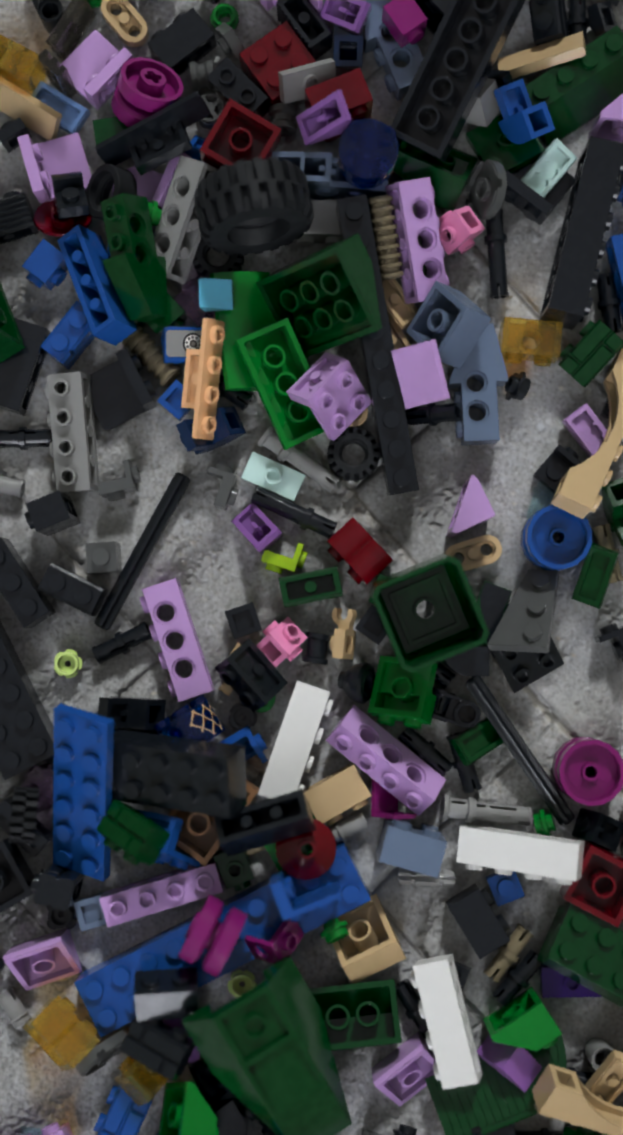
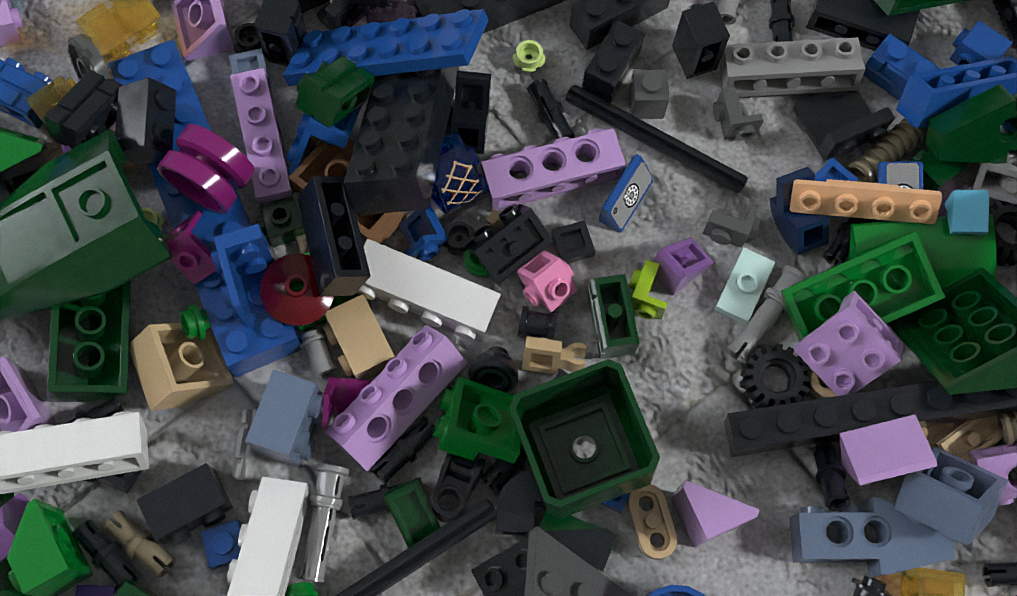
camera: 85 degrees right, 15 degrees down
(197, 575) = (626, 195): none -> slope
(304, 517) = (696, 318): black pin -> none
(359, 552) = (659, 375): dark red brick -> none

